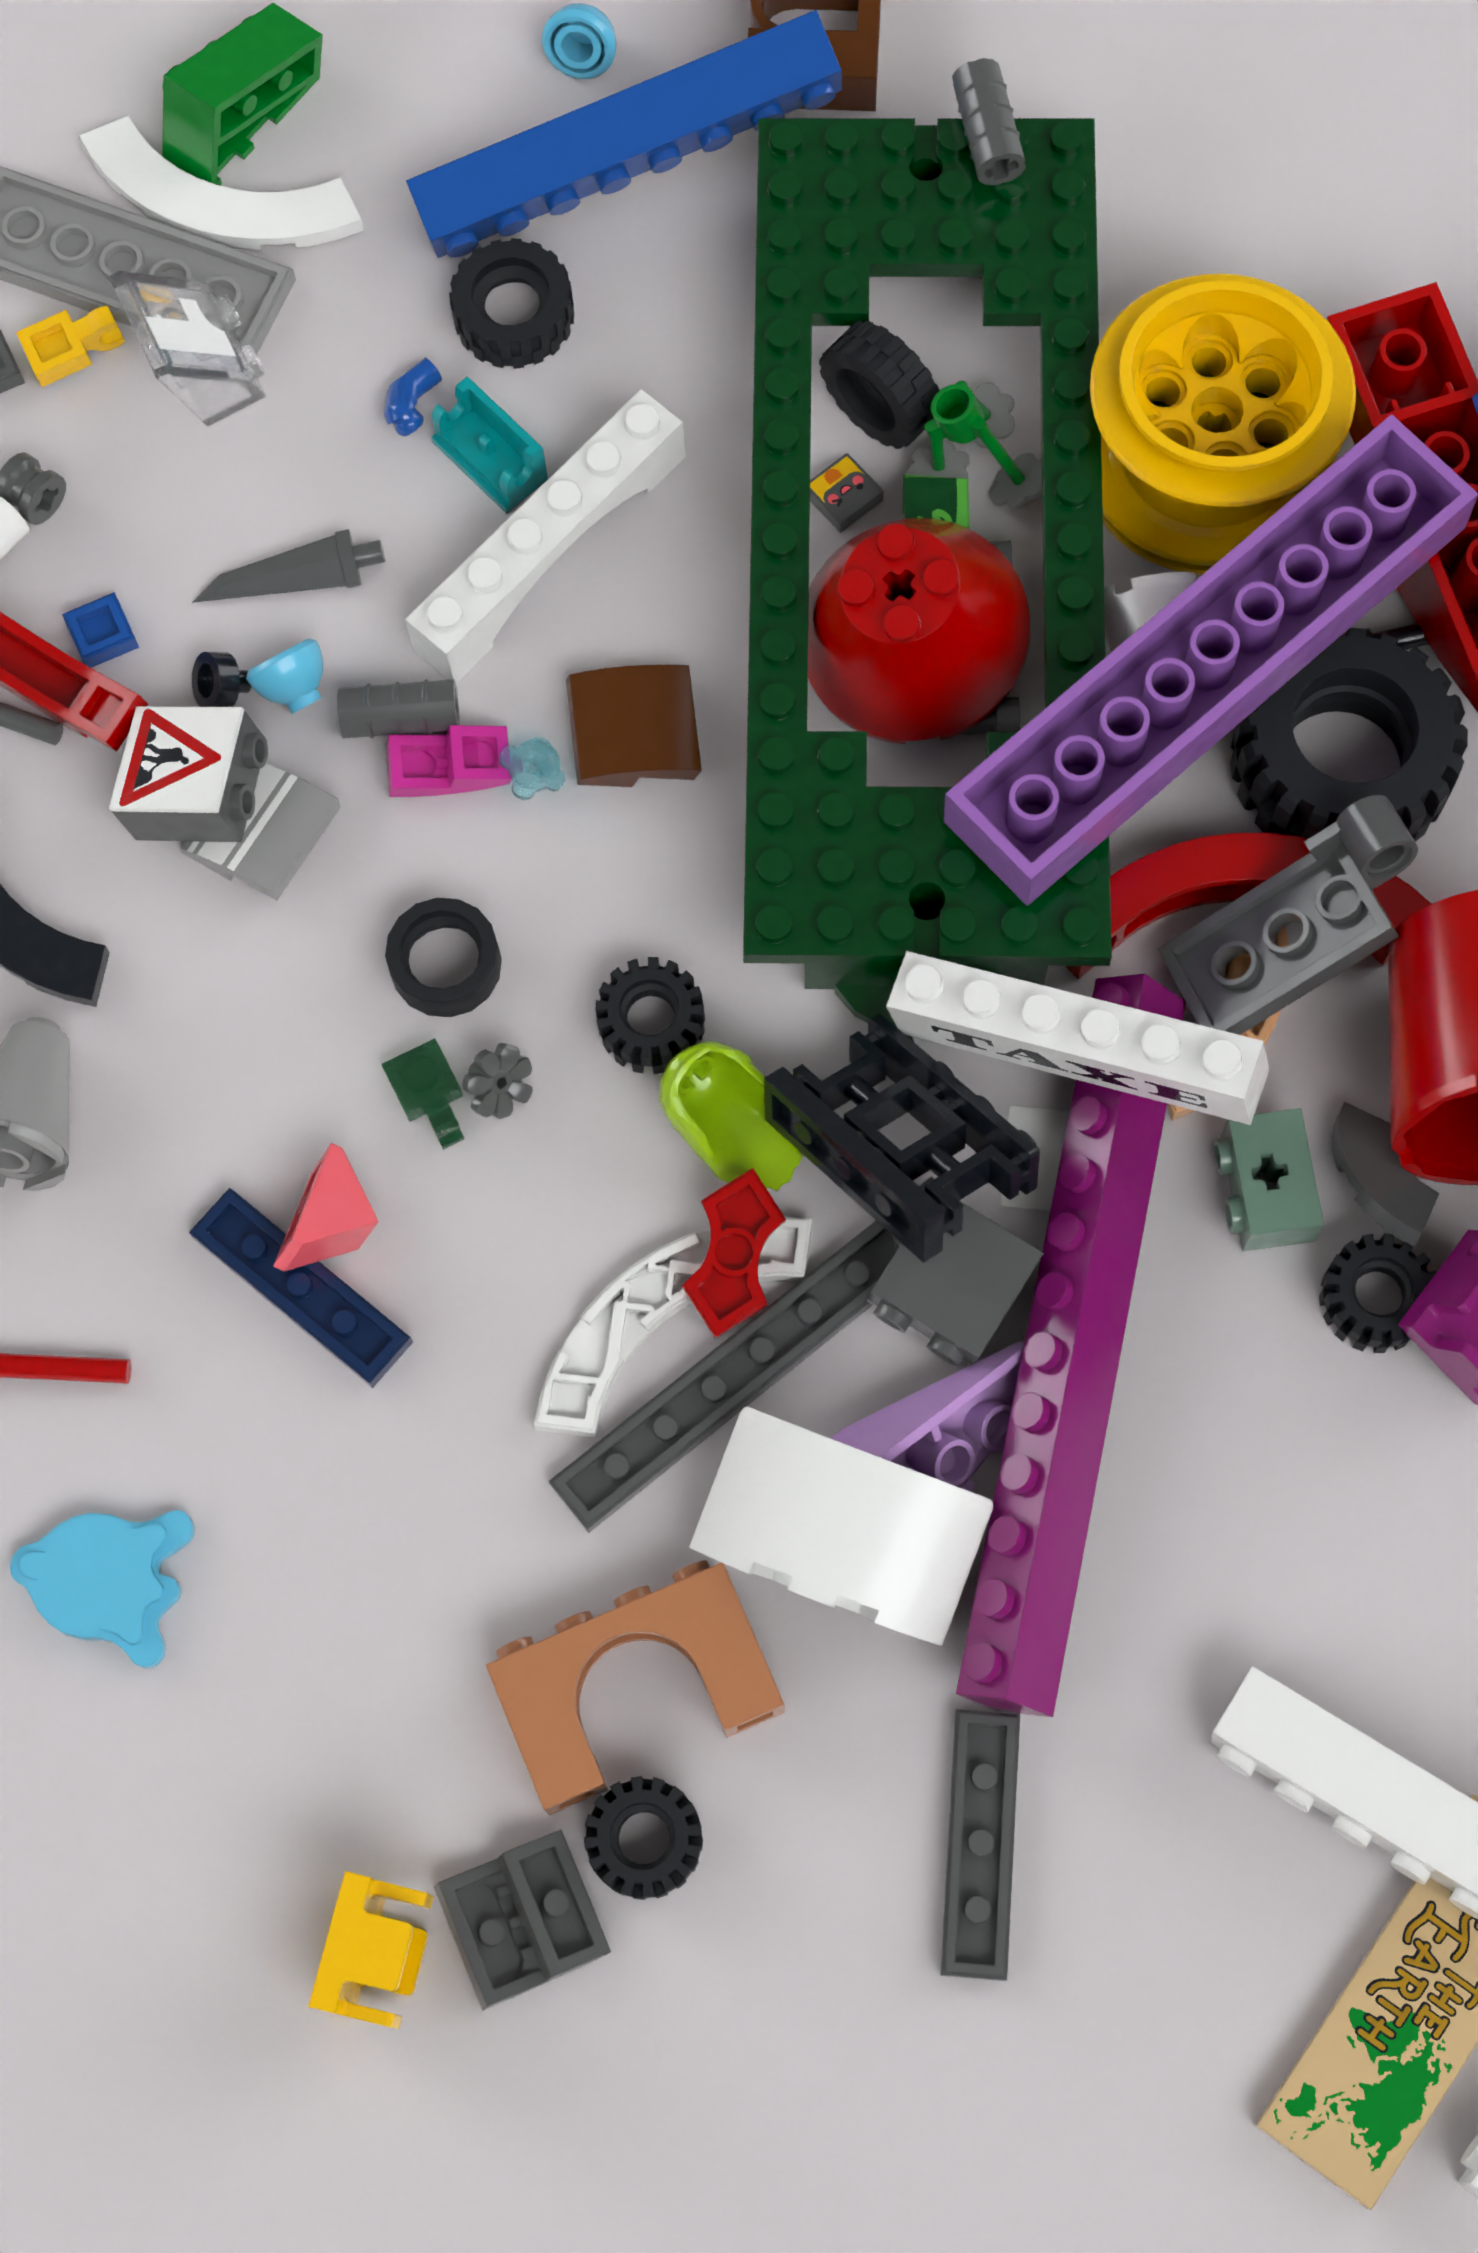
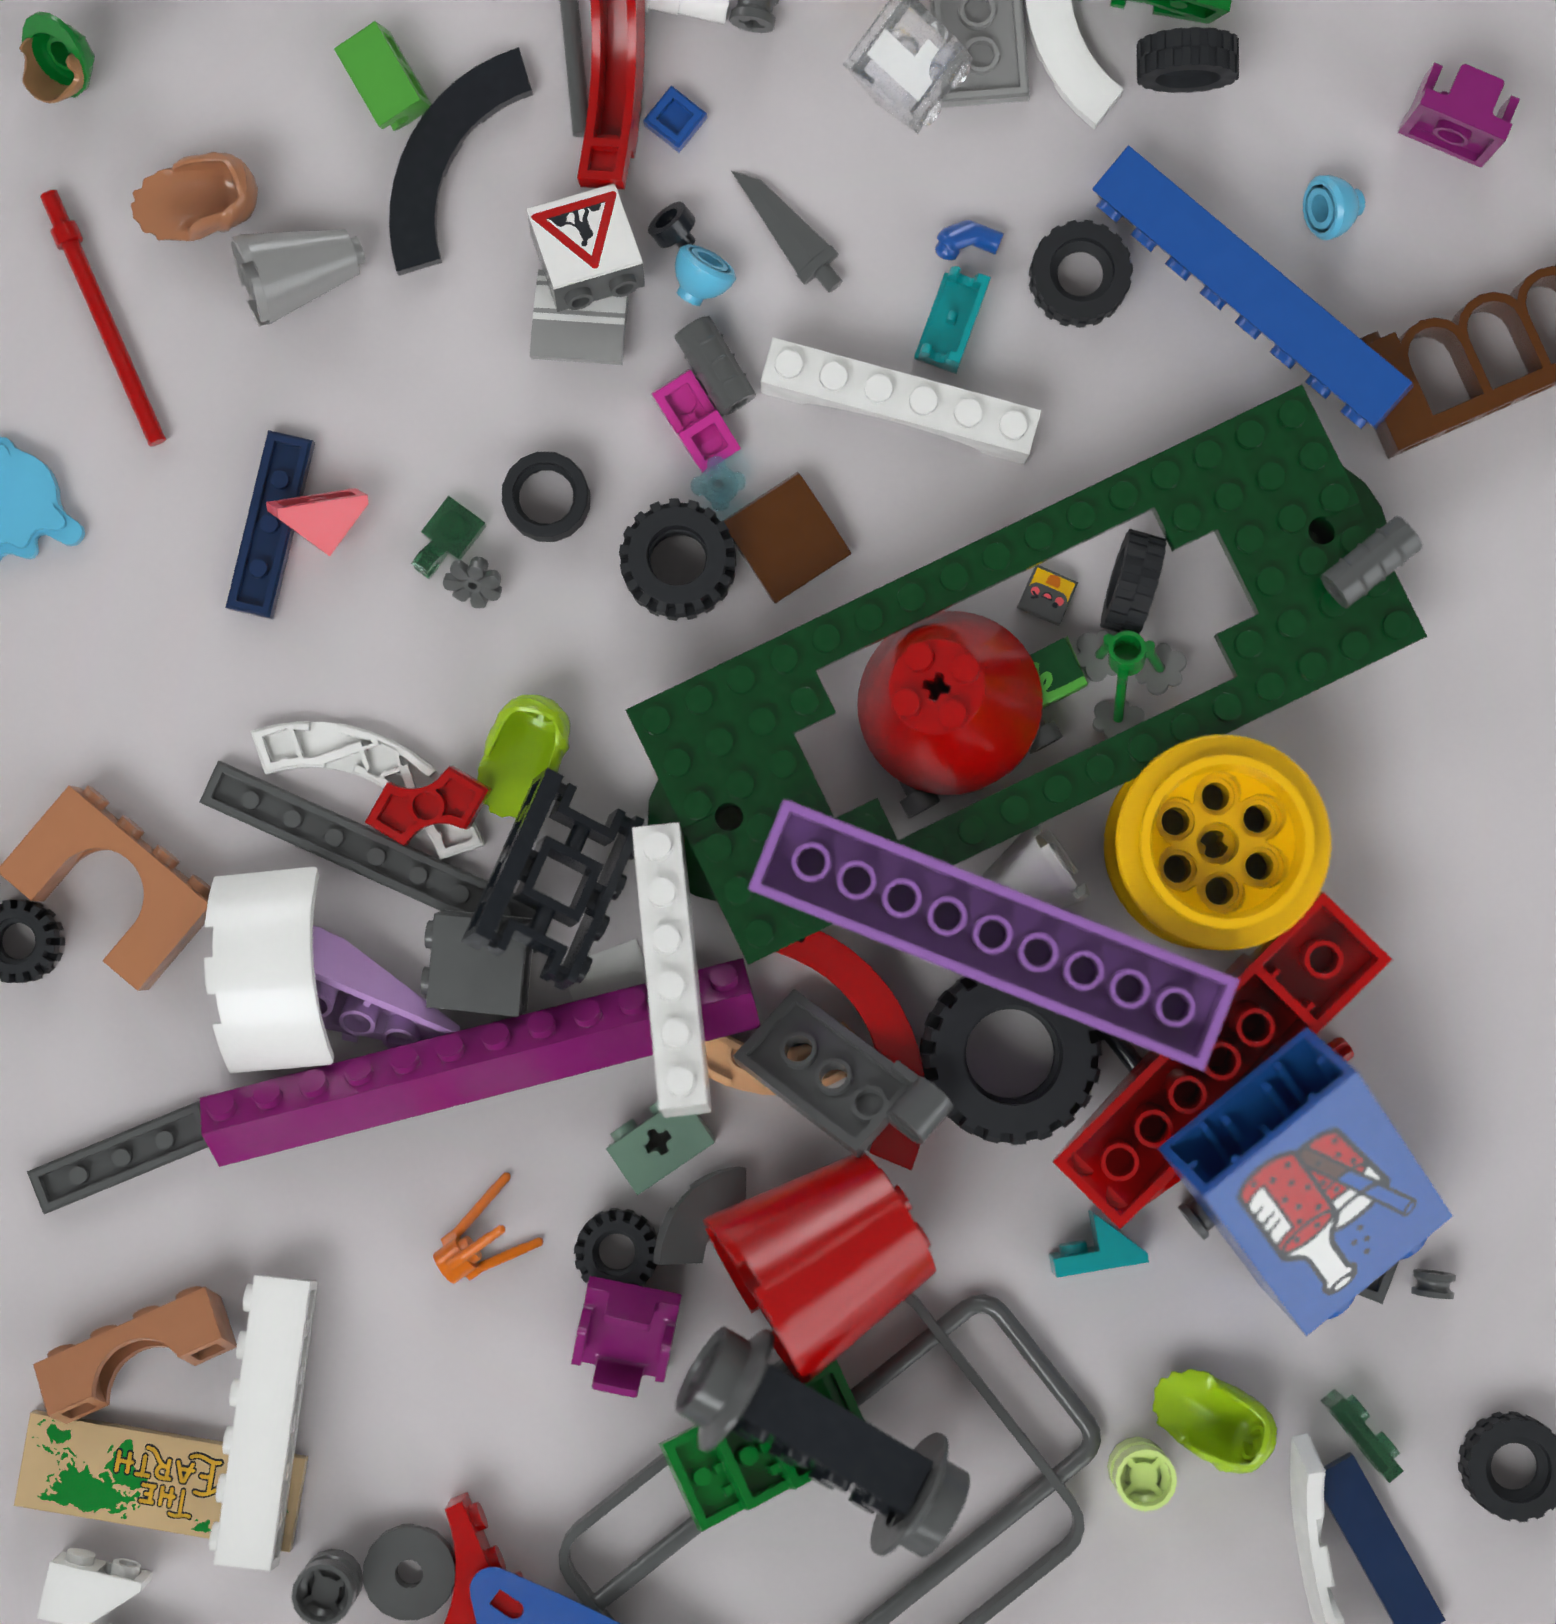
camera: 60 degrees right, 15 degrees up
(349, 91) = (1187, 60): none -> black tyre
(590, 799) = (669, 521): none -> black tyre
(644, 982) = (566, 634): black tyre -> none
(1239, 1857) = (81, 1376): none -> nougat arch
(1304, 1478) = (460, 1256): none -> orange plant

